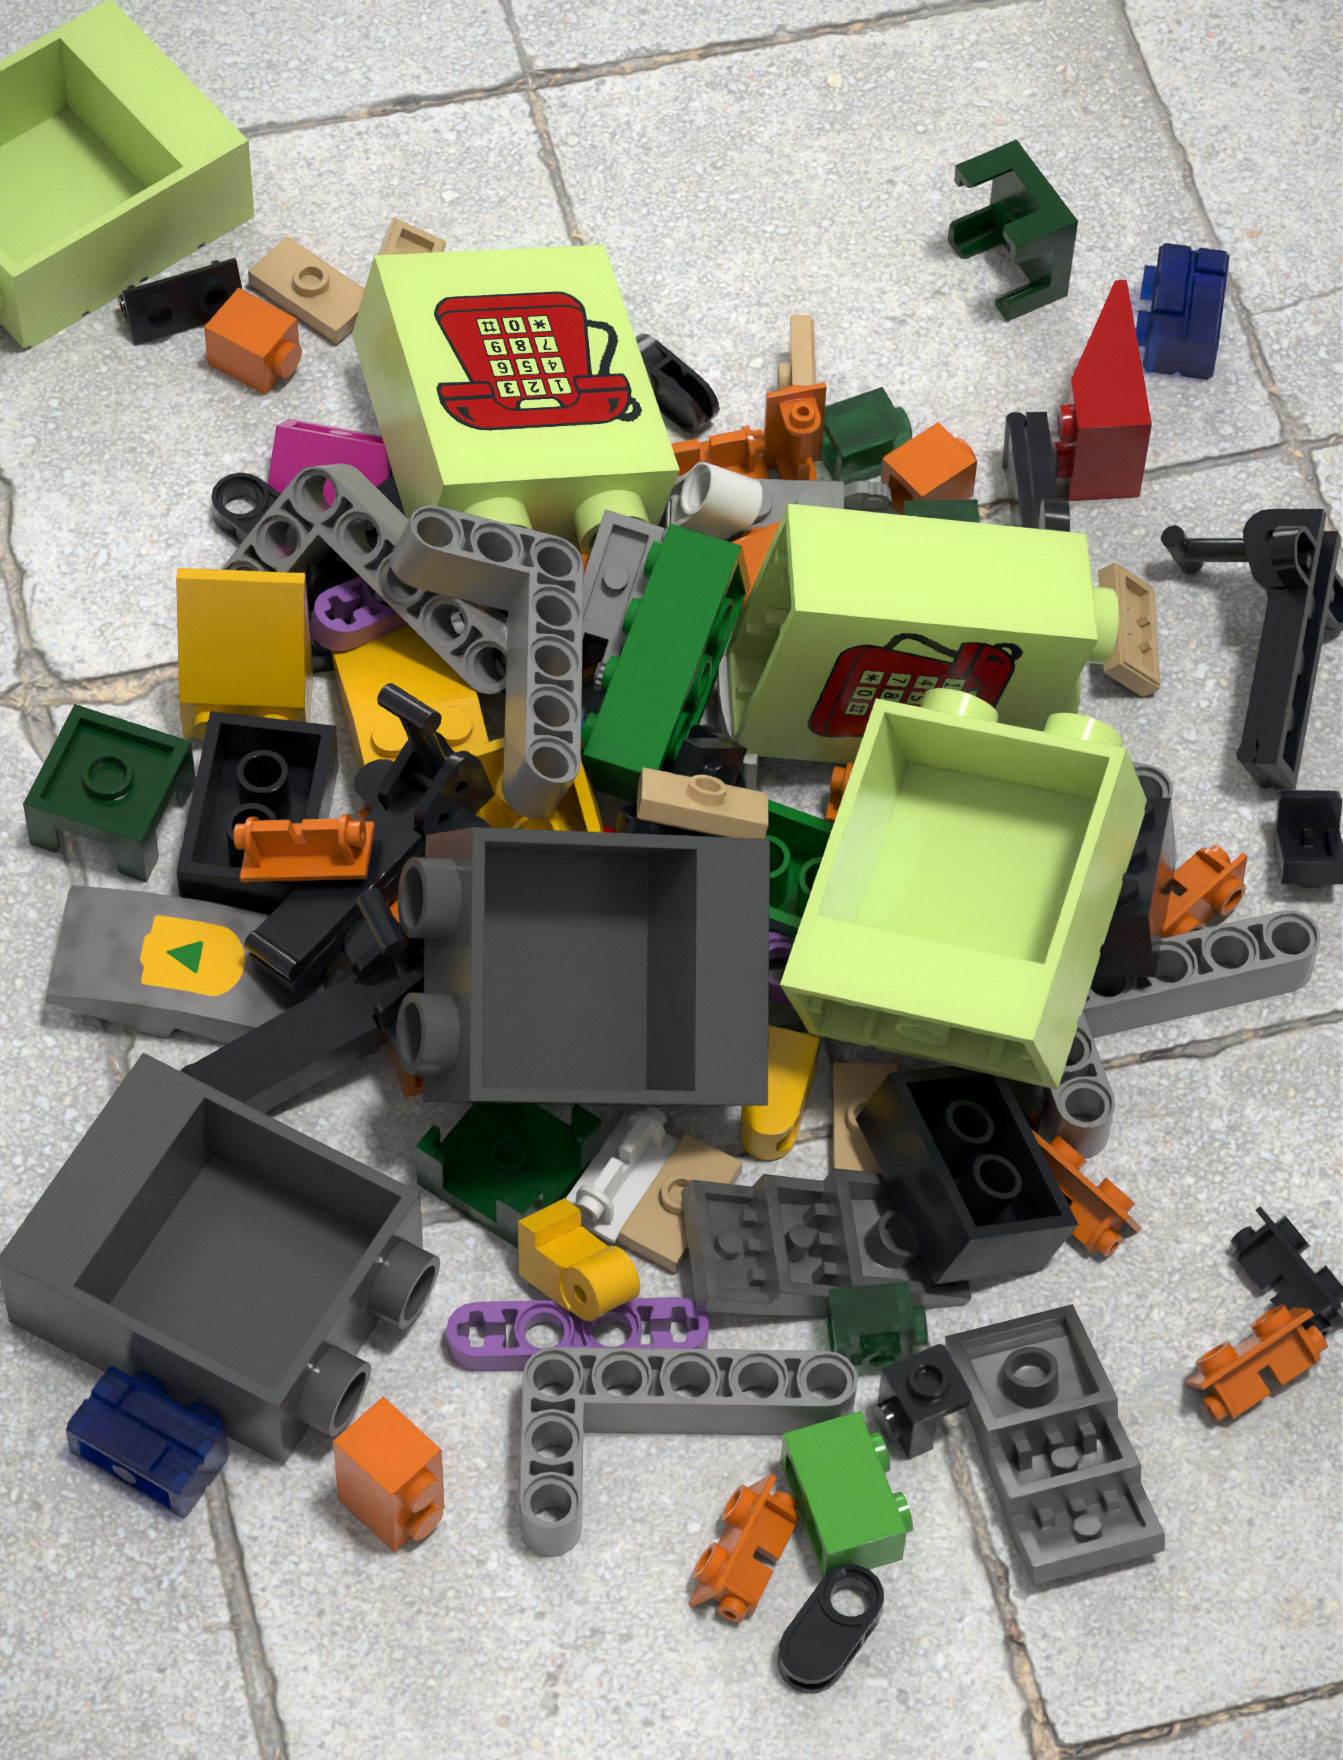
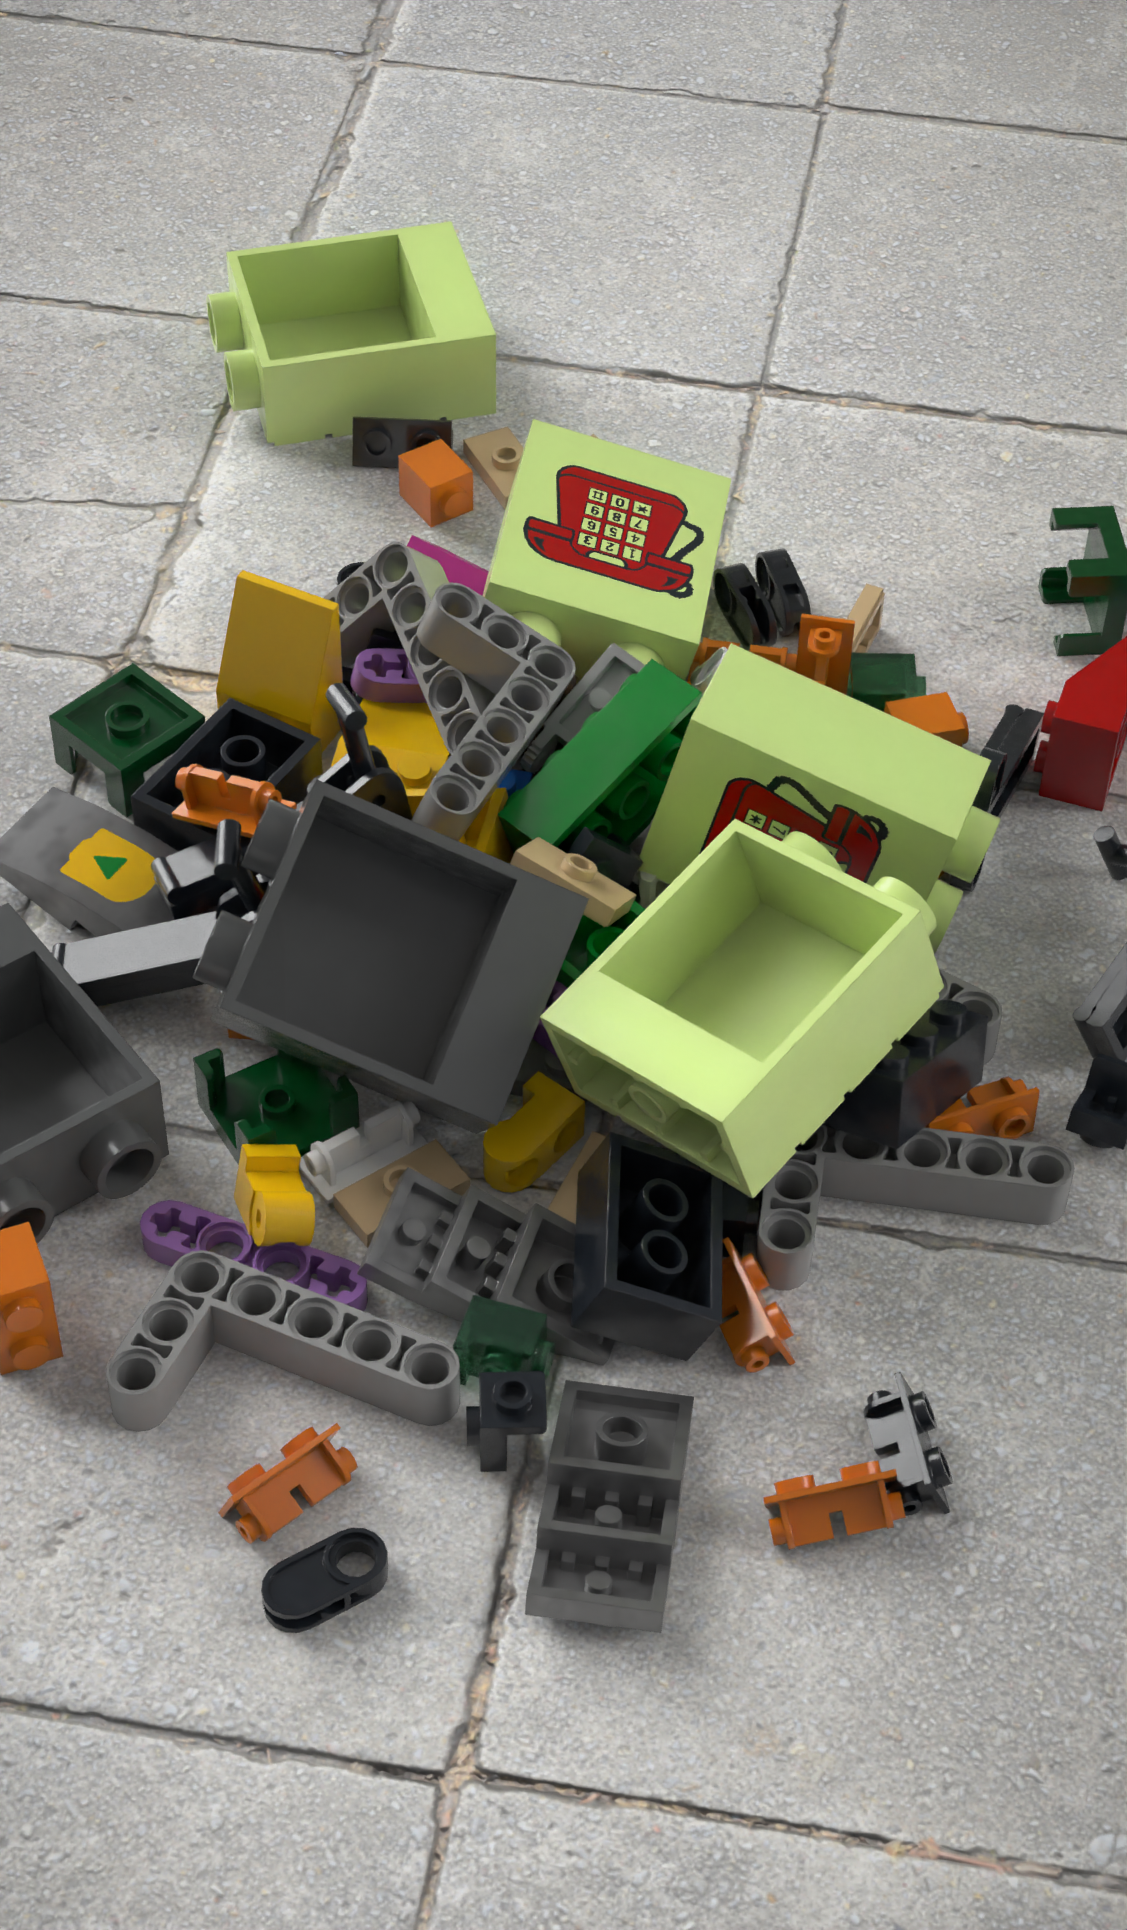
camera: 25 degrees right, 10 degrees down
(698, 346) = (782, 589): none -> black piece
(844, 1493) = (398, 1470): bright green brick -> none
(1136, 648) = (1033, 897): tan plate -> none

